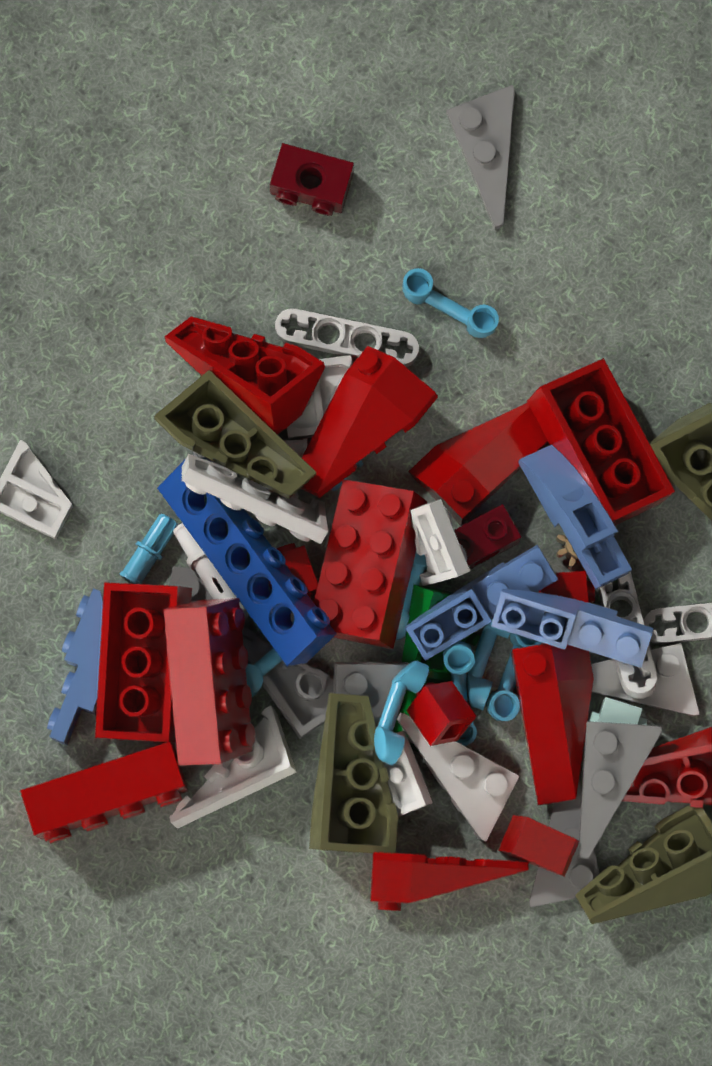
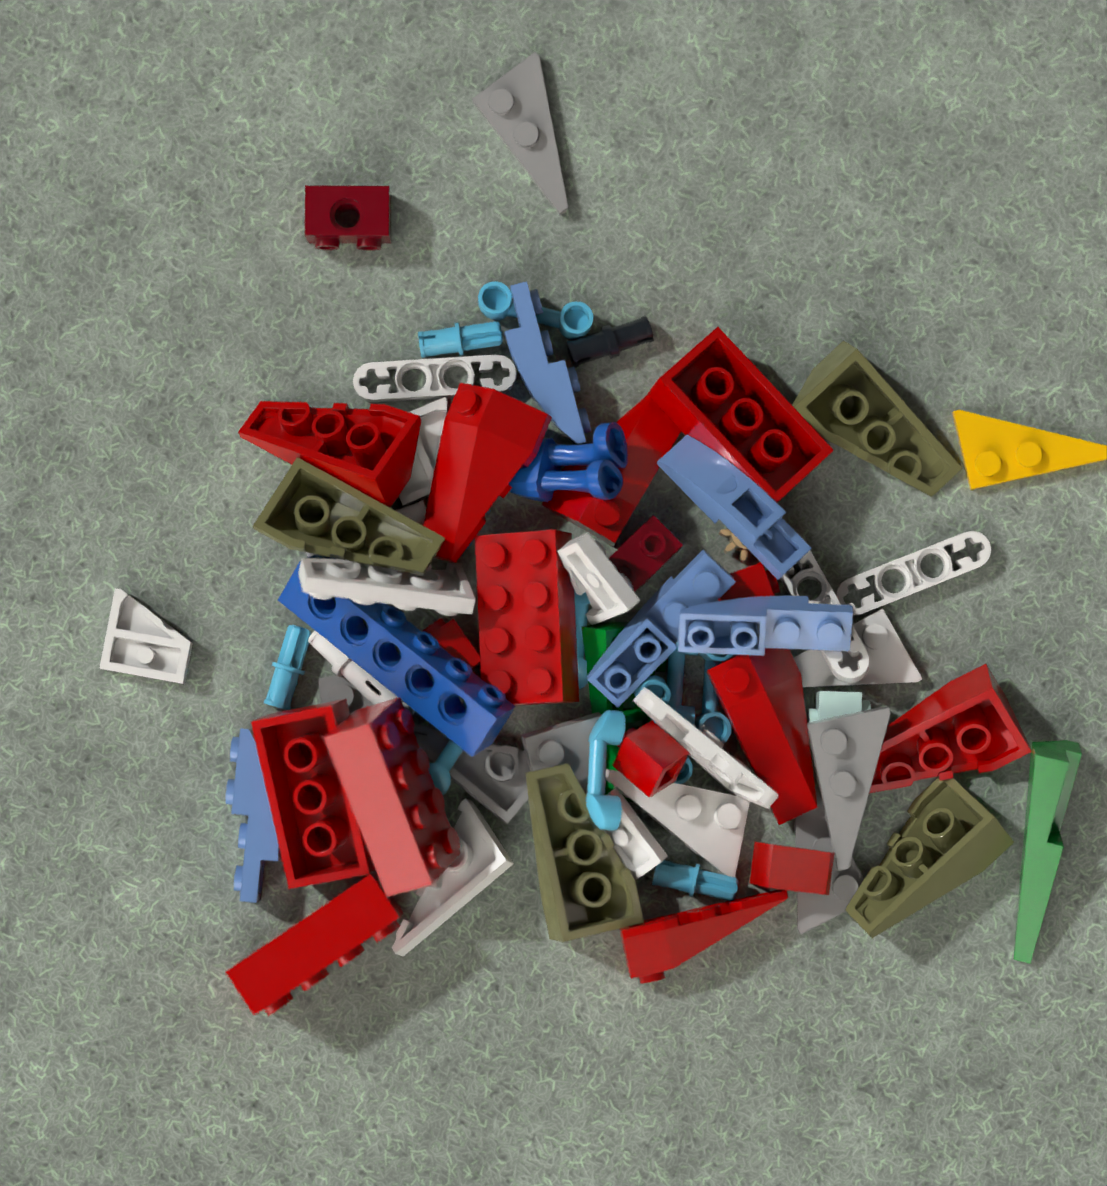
camera: 20 degrees left, 5 degrees up
(377, 310) = (459, 339): none -> medium azure axle
(444, 367) = (548, 384): none -> medium blue slope
(450, 833) = (695, 880): none -> medium azure axle
(464, 458) = (600, 479): none -> blue piece
(492, 721) = (707, 751): none -> white wing
(507, 348) = (610, 341): none -> black pin

